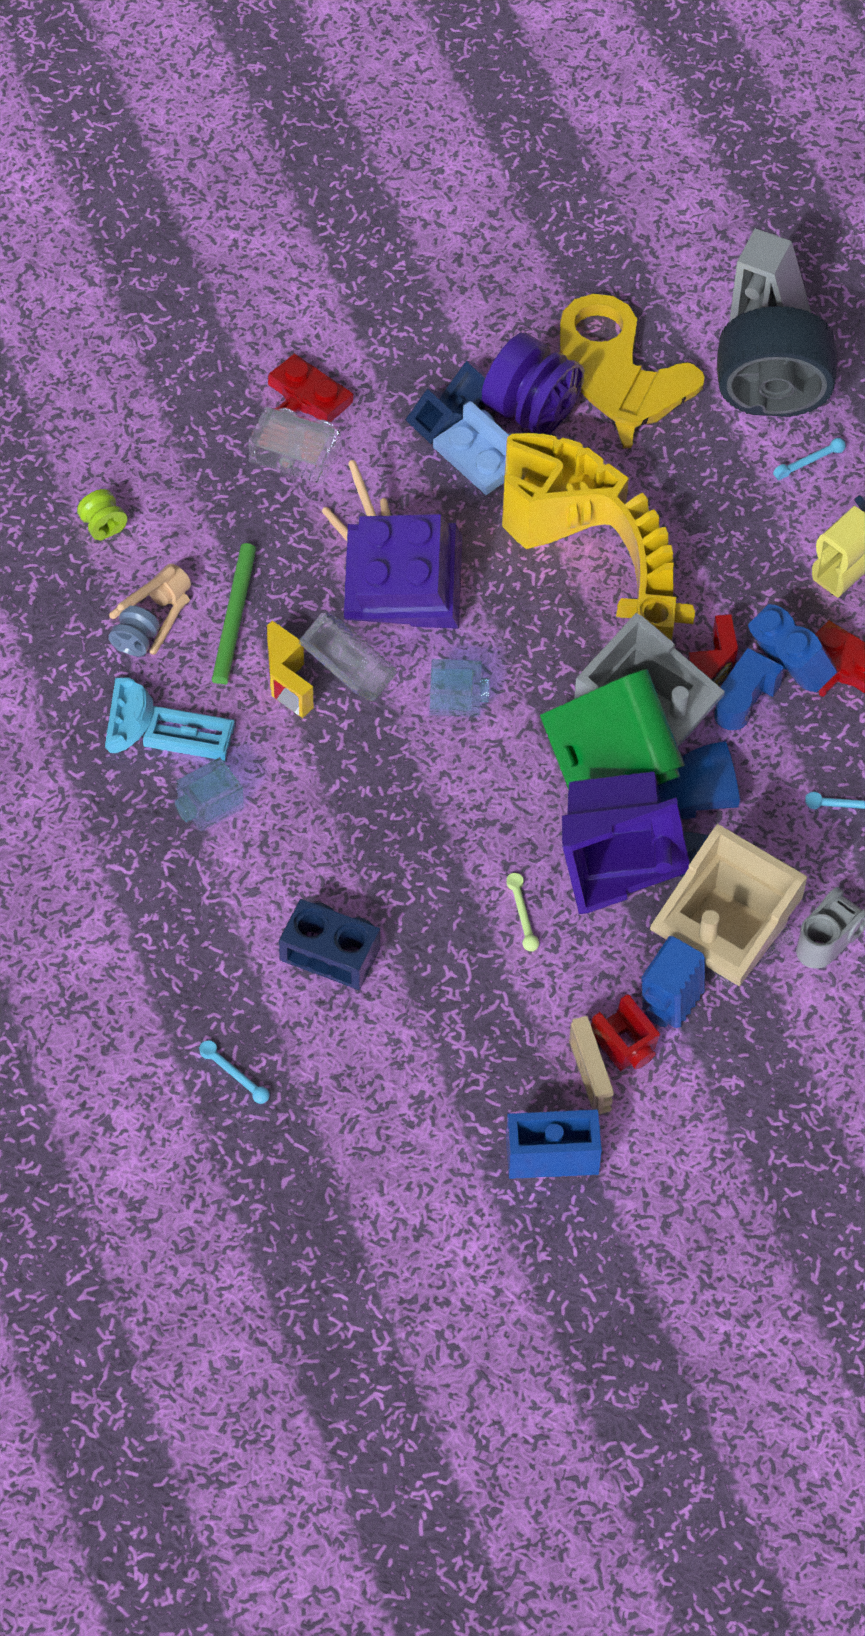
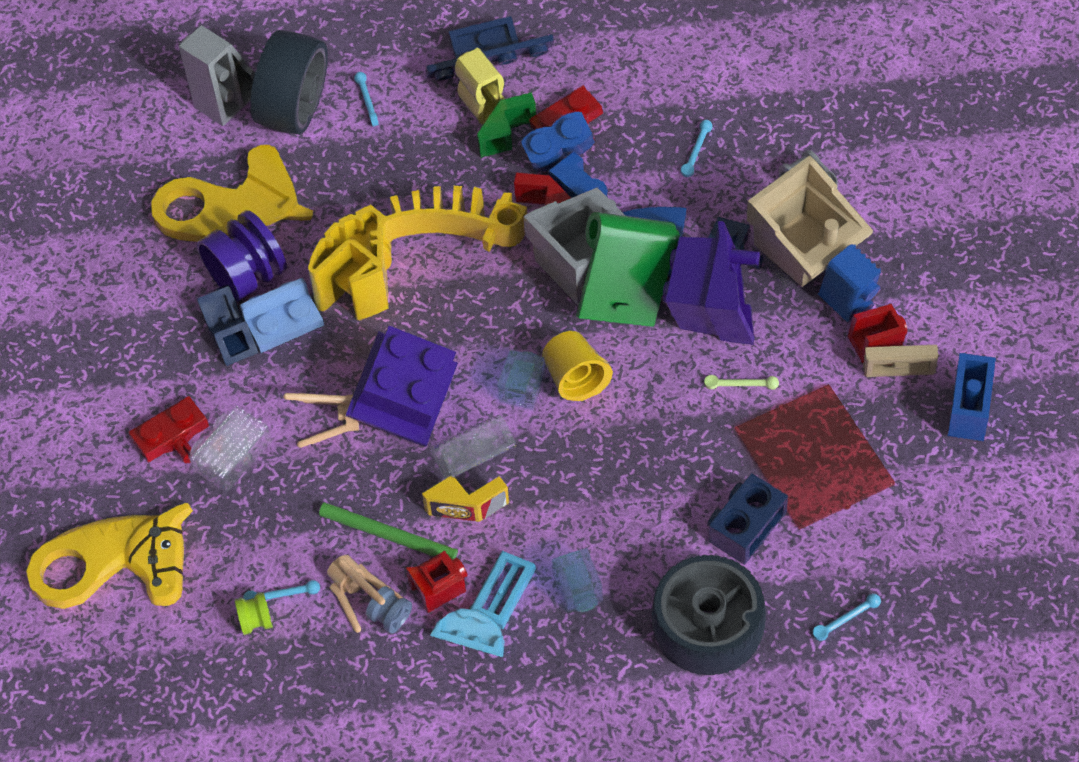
camera: 70 degrees left, 0 degrees up
(150, 562) = (311, 587): none -> medium azure hinge
(165, 387) = (142, 543): none -> yellow animal
(182, 681) = (442, 591): none -> red window
(191, 924) = (703, 640): none -> wheel
(441, 1005) = (815, 456): none -> clear red piece
(482, 731) = (576, 366): none -> yellow hat
(801, 589) = (509, 113): none -> green slope

